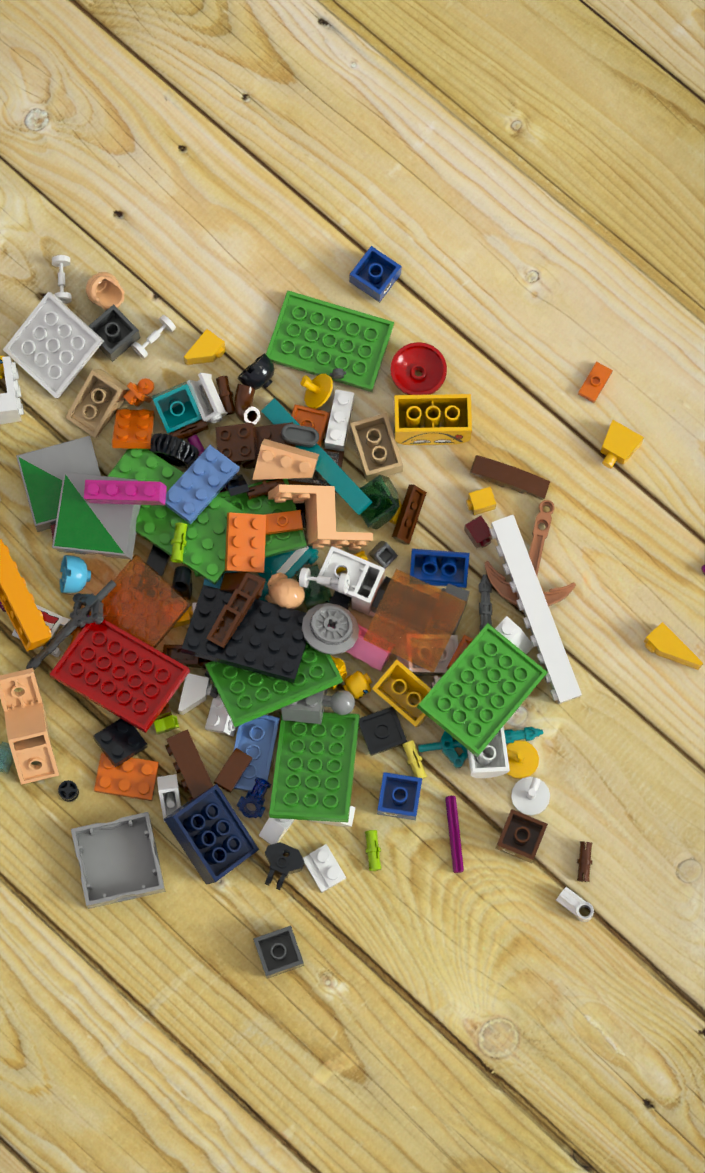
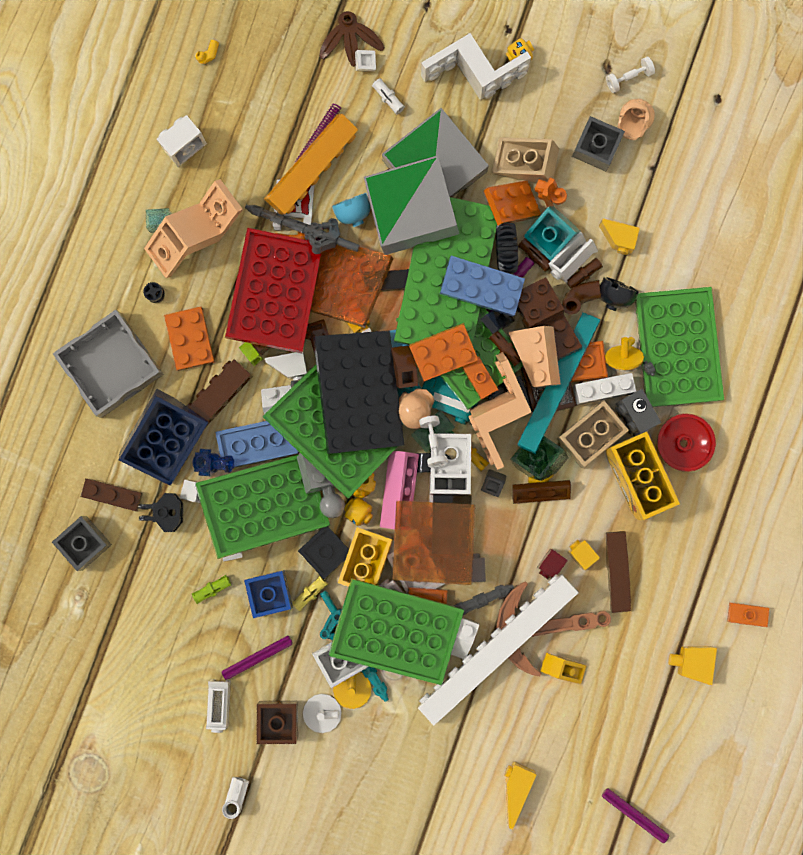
camera: 70 degrees right, 10 degrees up
(53, 345) = (562, 94): white plate -> none
(120, 741) = (213, 318): black plate -> none
(125, 492) = (437, 218): dark pink brick -> none
(167, 323) = (611, 182): white wheel -> none
(169, 794) = (185, 383): white slope -> none
(178, 542) = (416, 290): lime pin -> none
(183, 581) = (386, 310): black piece -> none
(233, 770) = (229, 432): reddish brown slope -> none
(235, 610) = (372, 370): reddish brown slope -> none
(243, 910) = (111, 494): none -> reddish brown plate
(299, 435) = (571, 358): dark grey tile -> none
(324, 868) = (178, 551): white plate -> none
(325, 638) = (382, 465): light grey piece -> none
(373, 399) = (637, 413): none -> dark grey brick
(375, 274) = (764, 362): blue brick -> none
(440, 567) = (500, 541): blue slope -> none
(483, 886) = (218, 705): none -> white window
(577, 561) = (563, 668): none -> yellow slope
(584, 861) = (279, 789): reddish brown pin -> none

